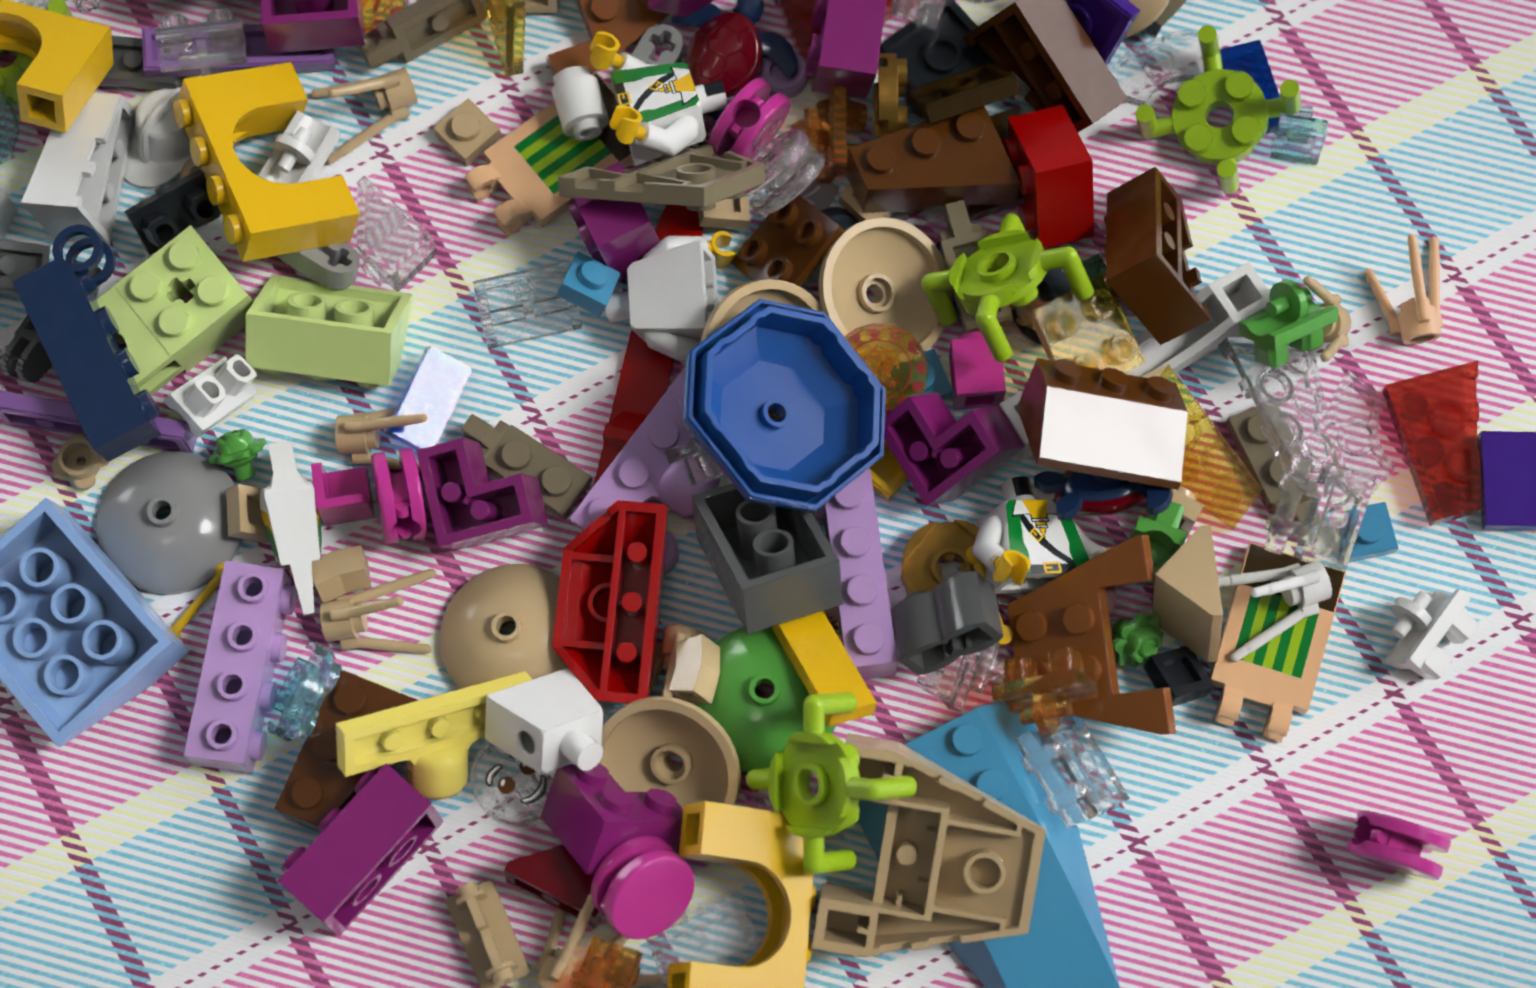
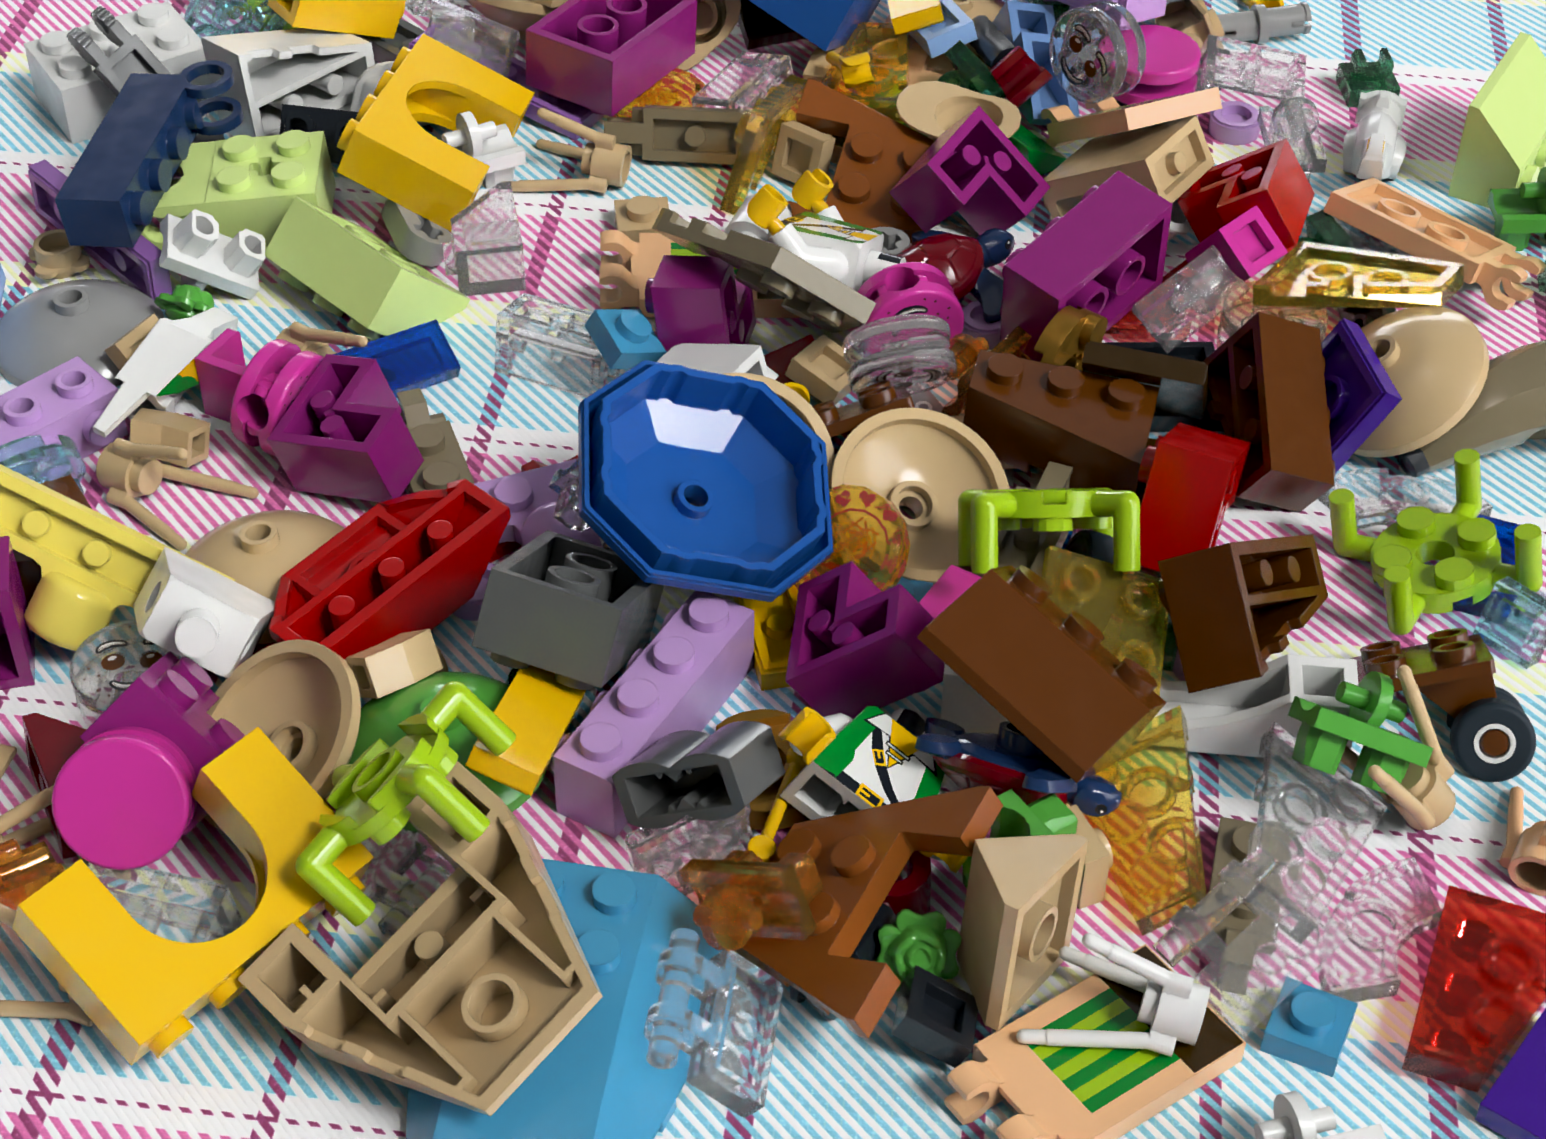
camera: 35 degrees right, 30 degrees down
(1284, 223) = (1456, 672): none -> plate

